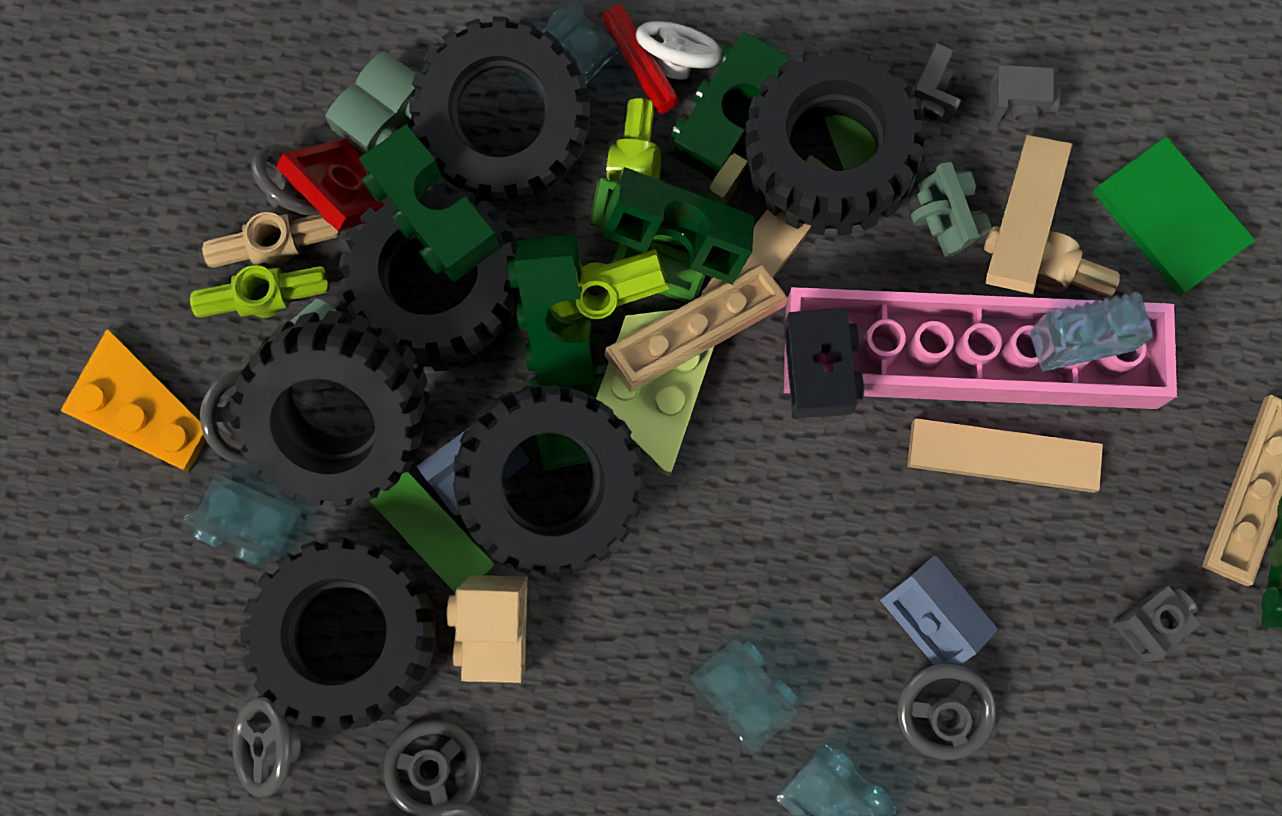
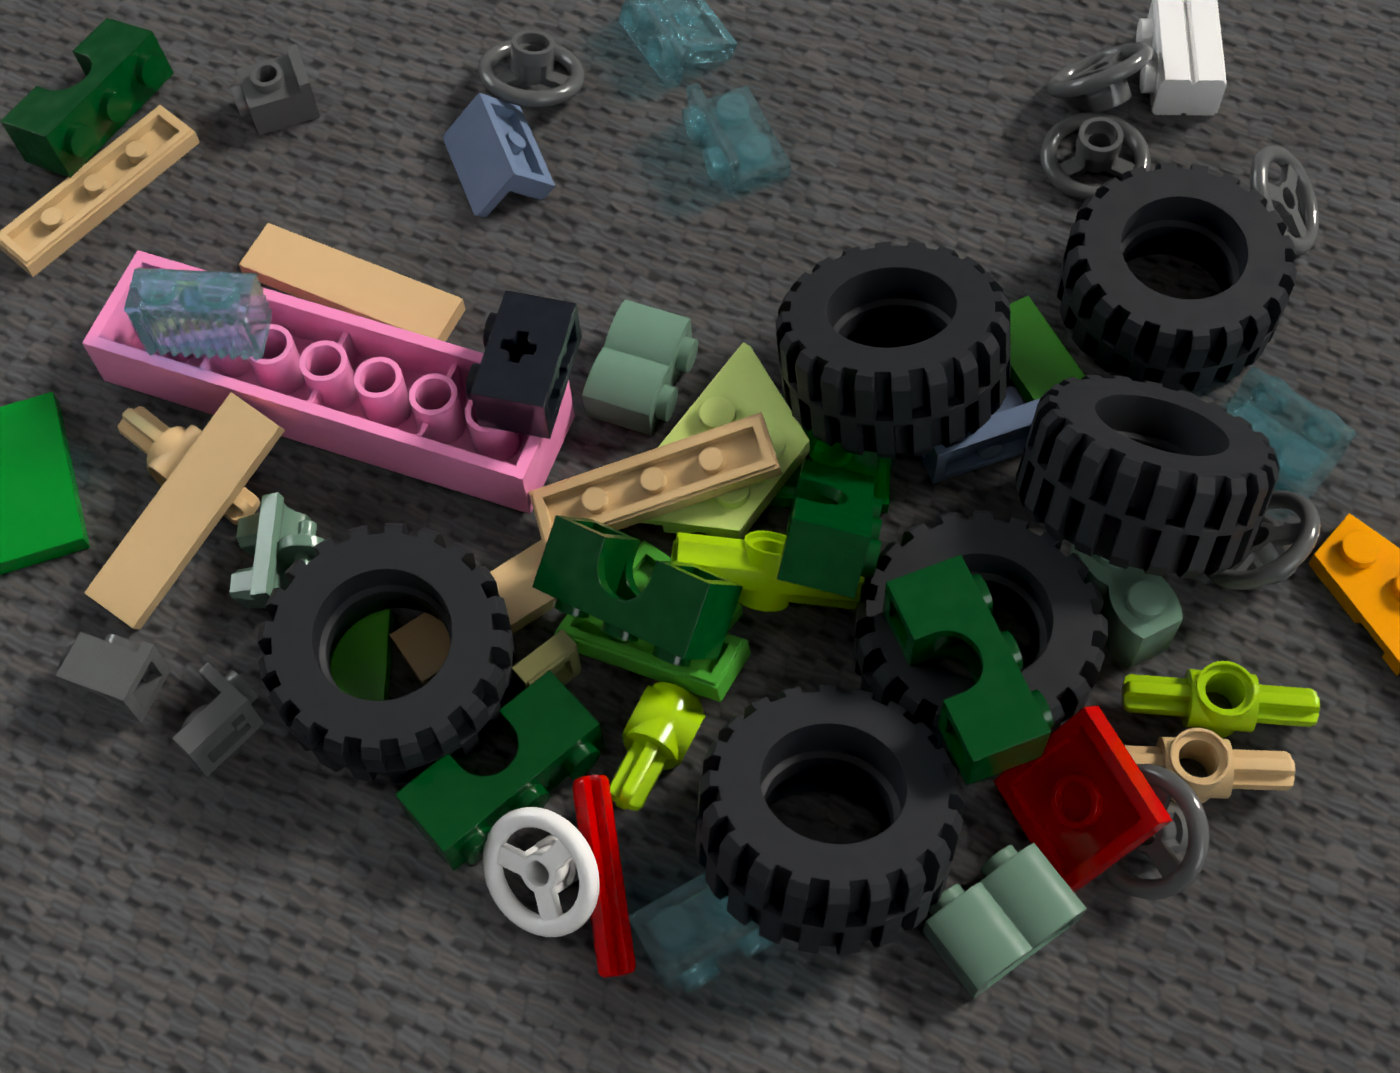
camera: 160 degrees left, 15 degrees down
(490, 628) = (1002, 227): tan brick -> none
(746, 439) = (639, 367): none -> sand green brick

